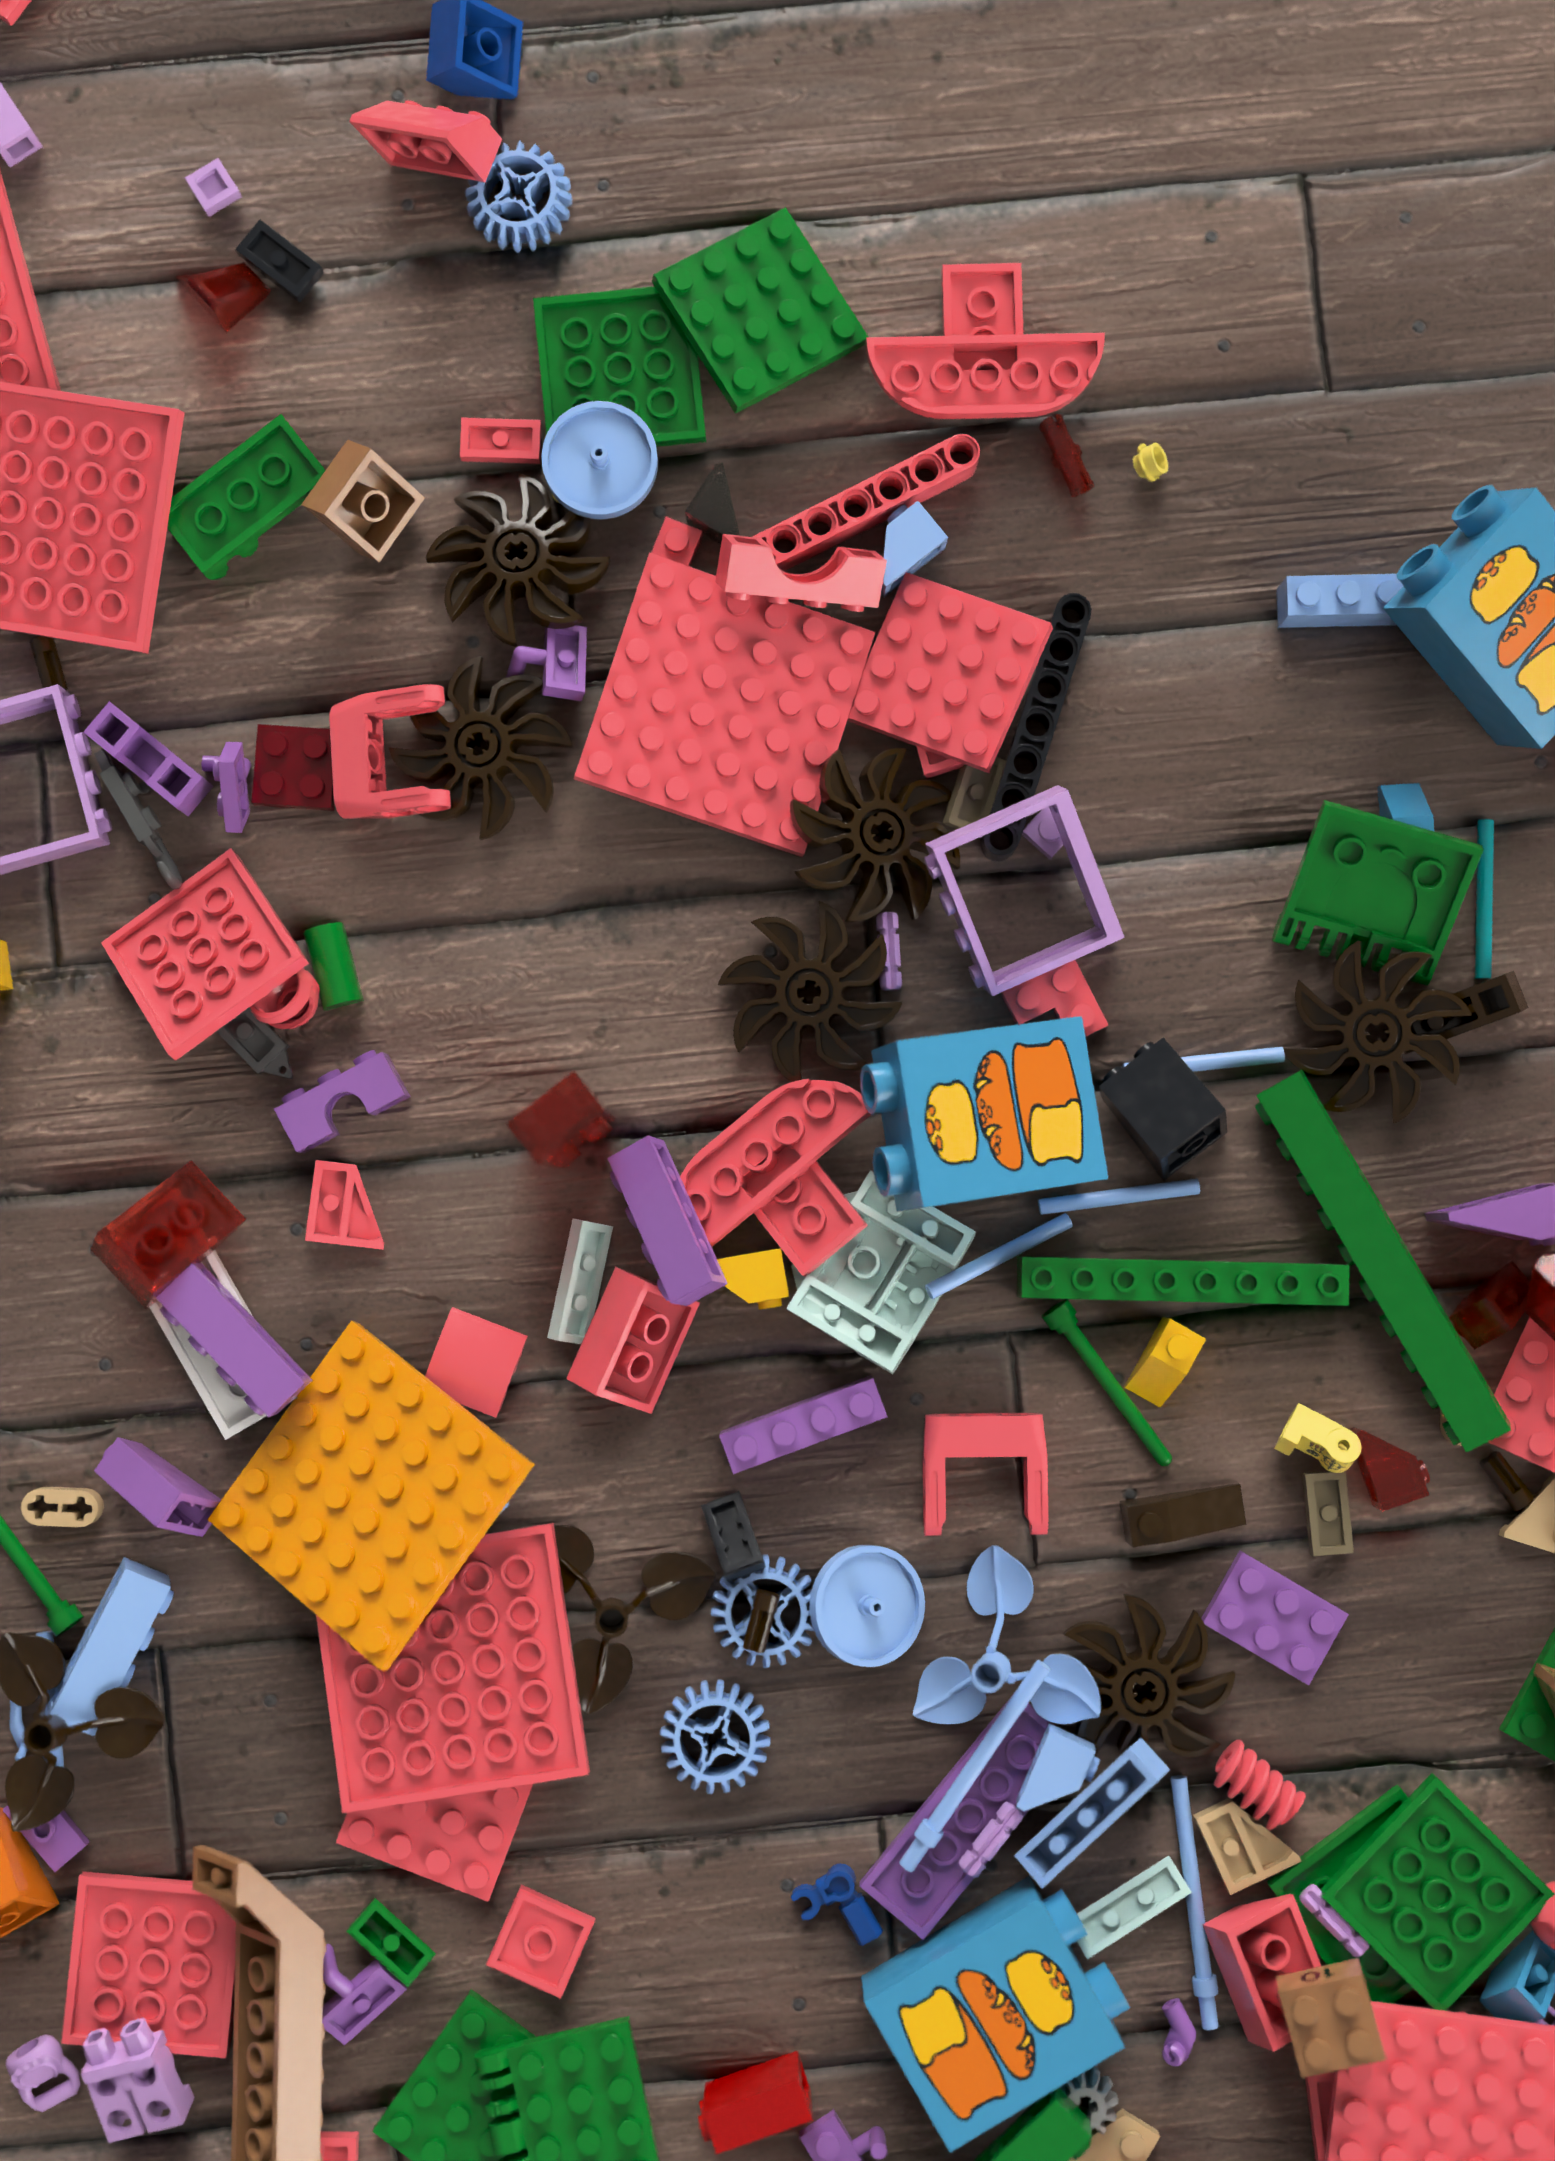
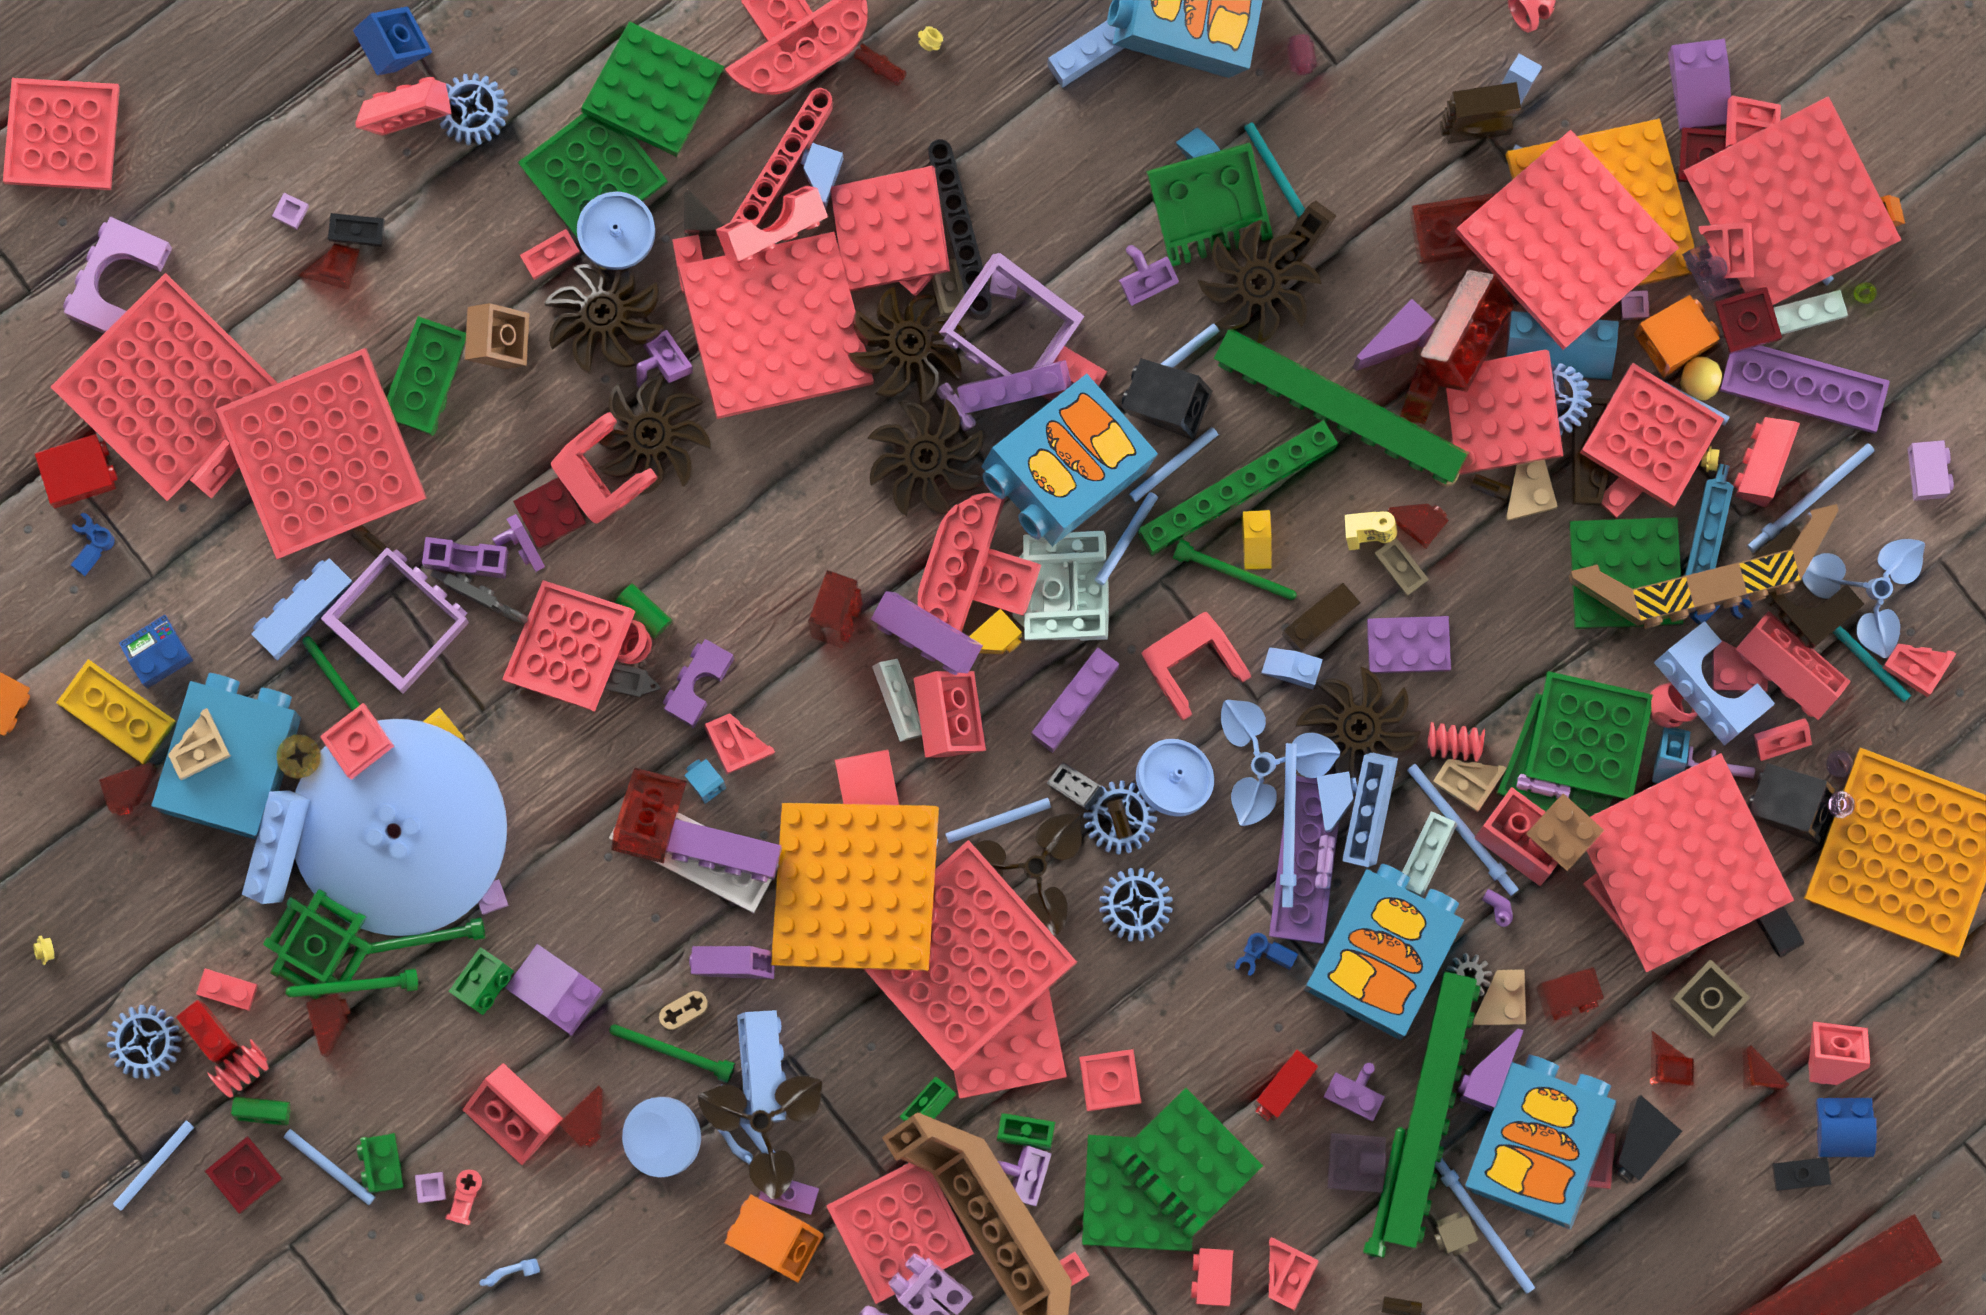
camera: 30 degrees left, 5 degrees down
(268, 1231) = (704, 780): none -> dark azure slope
(289, 1827) = (930, 1100): none -> green brick
(610, 1513) = (998, 820): none -> light blue bar
(977, 975) = (1014, 387): none -> medium lavender arch
(1107, 1555) = (1292, 667): none -> light blue slope
(1236, 939) = (1148, 279): none -> medium lavender plate

